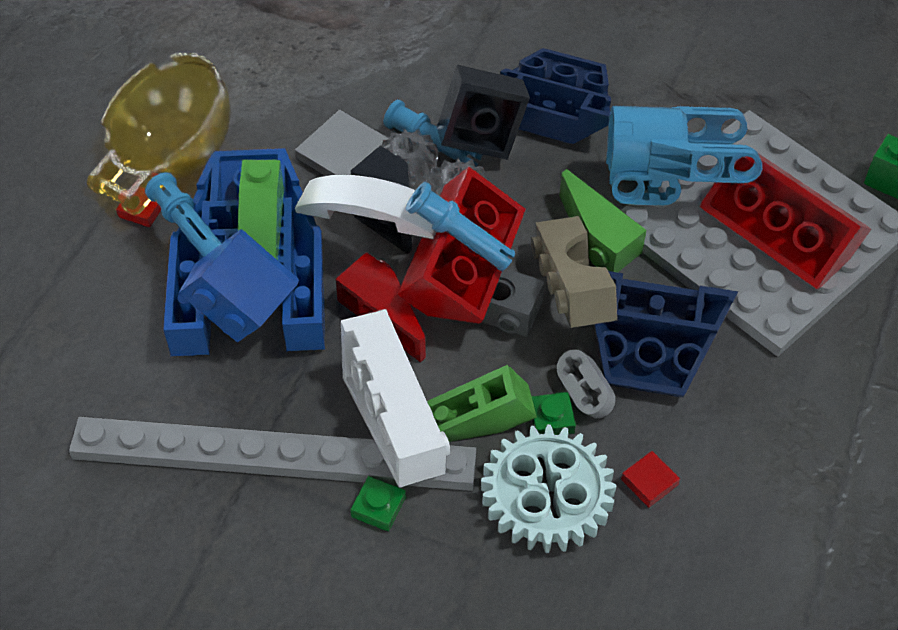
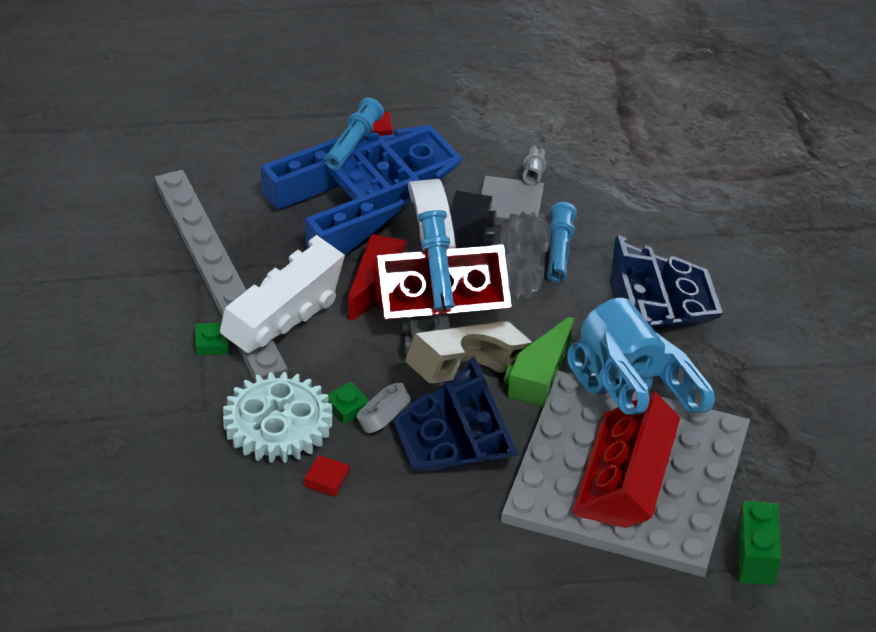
camera: 60 degrees right, 10 degrees down
(161, 124) = (441, 95): clear yellow windscreen -> none
(238, 285) = (311, 178): blue slope -> none
(261, 202) = (383, 163): bright green slope -> none
(311, 103) = (534, 165): none -> light grey axle
(482, 112) = (584, 245): black brick -> none
(484, 406) = (319, 355): bright green slope -> none

